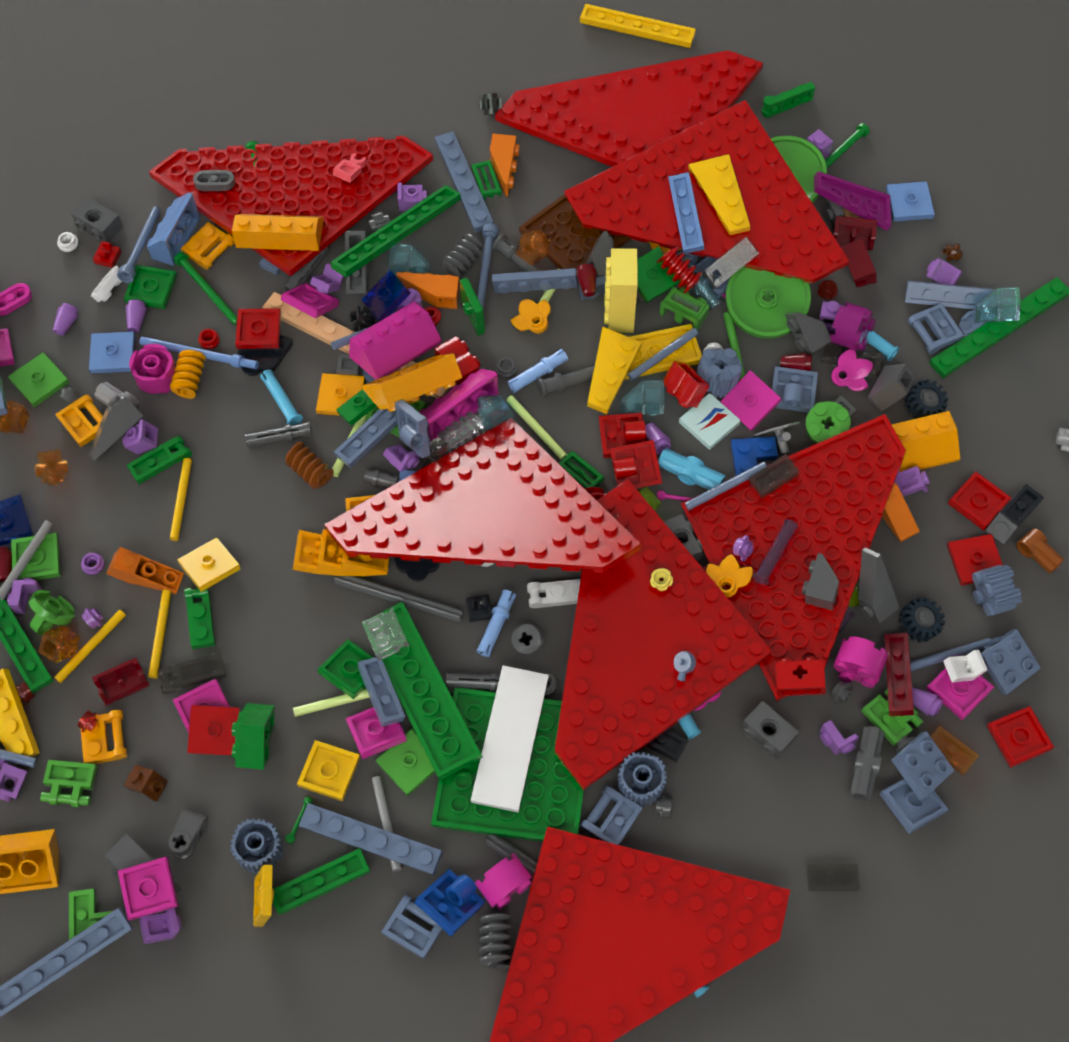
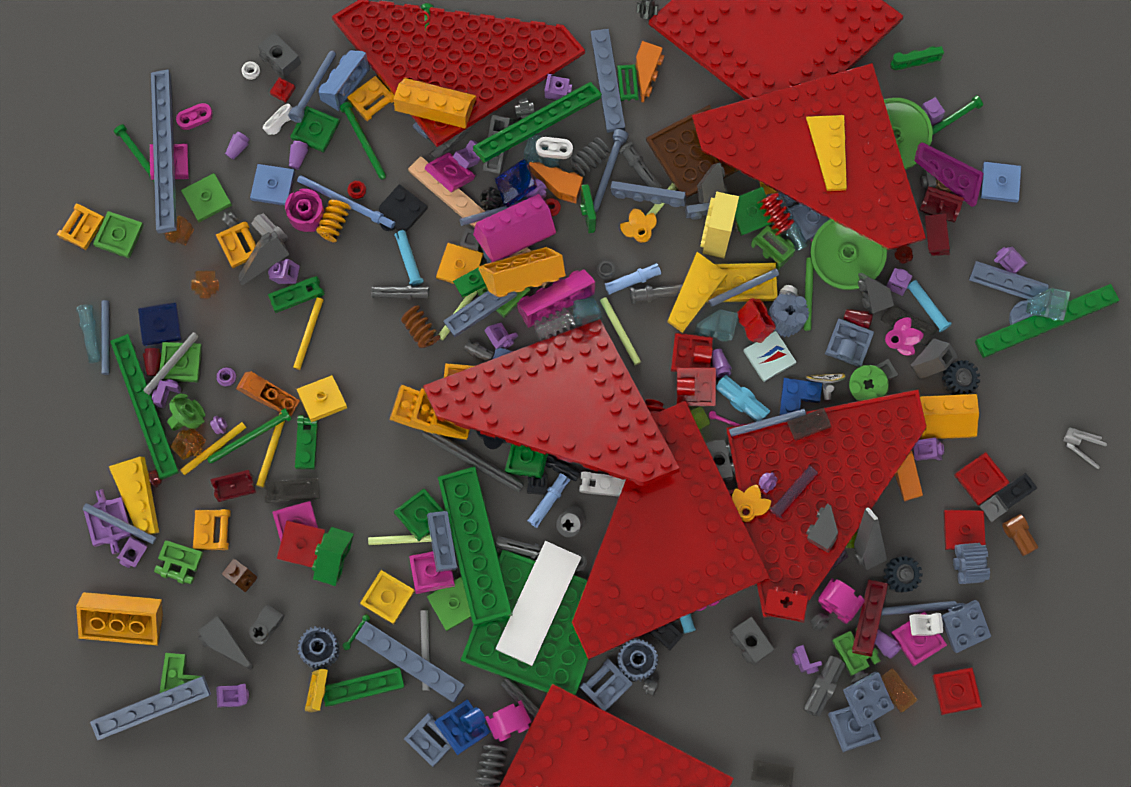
camera: 10 degrees right, 10 degrees up
(88, 721) = (202, 516): clear red plate -> none
(131, 623) = (250, 436): none -> green bar
(148, 888) = (227, 665): dark pink plate -> none
(214, 180) = (387, 38): dark grey plate -> none
(258, 328) = (400, 191): red plate -> none
(349, 170) = (508, 52): coral plate -> none
(385, 634) = (454, 493): clear plate -> none
(413, 428) = (513, 317): sand blue plate -> none
(420, 251) = (554, 146): none -> white plate
(437, 448) = (528, 338): clear smoke axle -> none
(460, 582) = (525, 462): none -> green plate
(466, 362) = (567, 247): red brick -> none
(501, 584) = (562, 468): none -> black axle
(533, 246) = (653, 162): clear orange brick -> none
(587, 279) = (693, 205): dark red cone -> none
(593, 483) = (657, 392): green tile -> none
(661, 573) = (691, 492): light yellow plate -> none
(684, 663) = (693, 574): sand blue piece -> none
(686, 213) = (793, 162): medium blue plate -> none
(731, 262) = (822, 217): clear smoke plate -> none
(751, 400) = (809, 346): dark pink plate -> none
(852, 326) = (914, 298): magenta brick -> none
(941, 325) = (994, 308): sand blue plate -> none
(952, 252) = (1024, 240): reddish brown piece -> none

